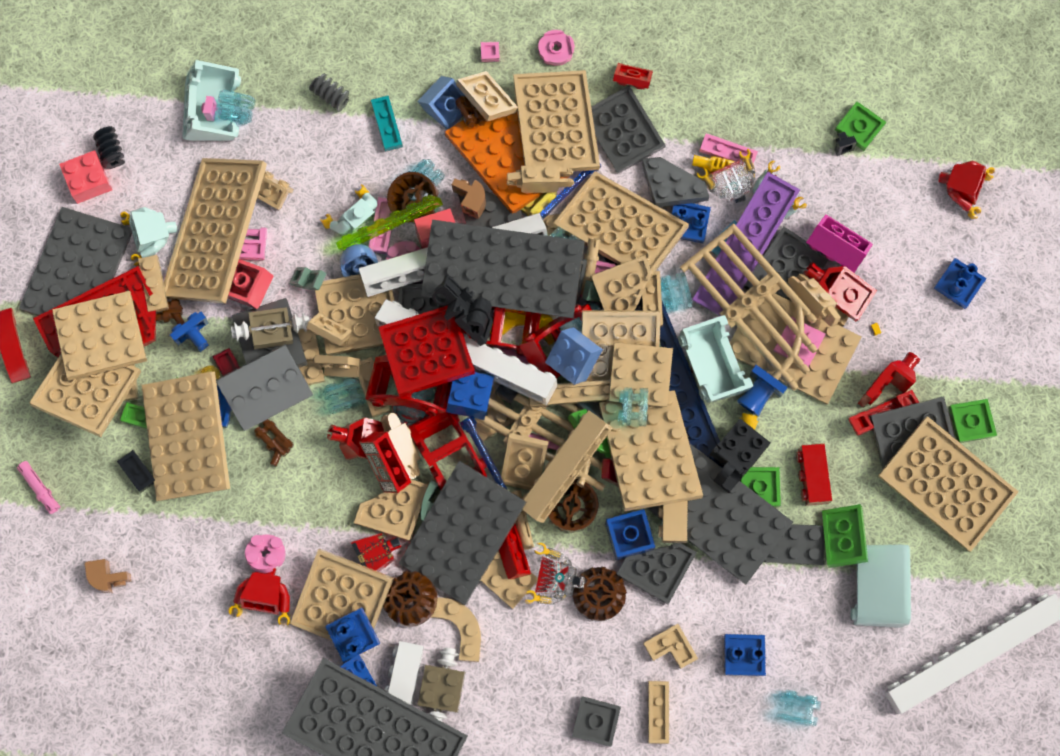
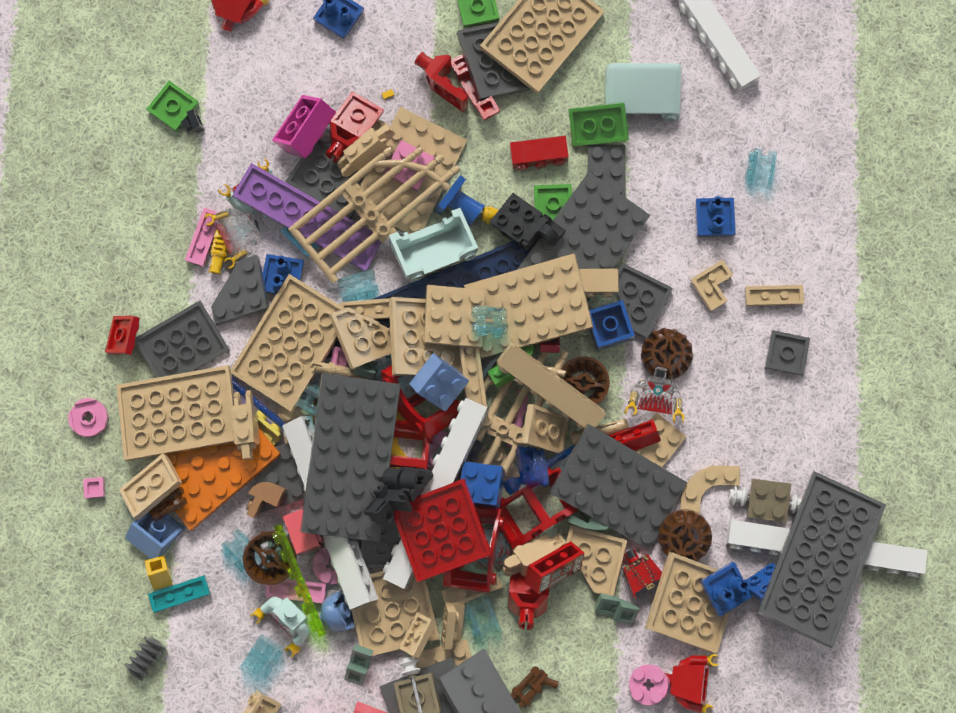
camera: 85 degrees left, 5 degrees up
(321, 192) = (261, 657): none -> clear light blue brick
(339, 532) = (618, 608): none -> sand green slope
(407, 103) = (158, 572): none -> yellow brick
(486, 444) = (532, 466): none -> clear blue plate

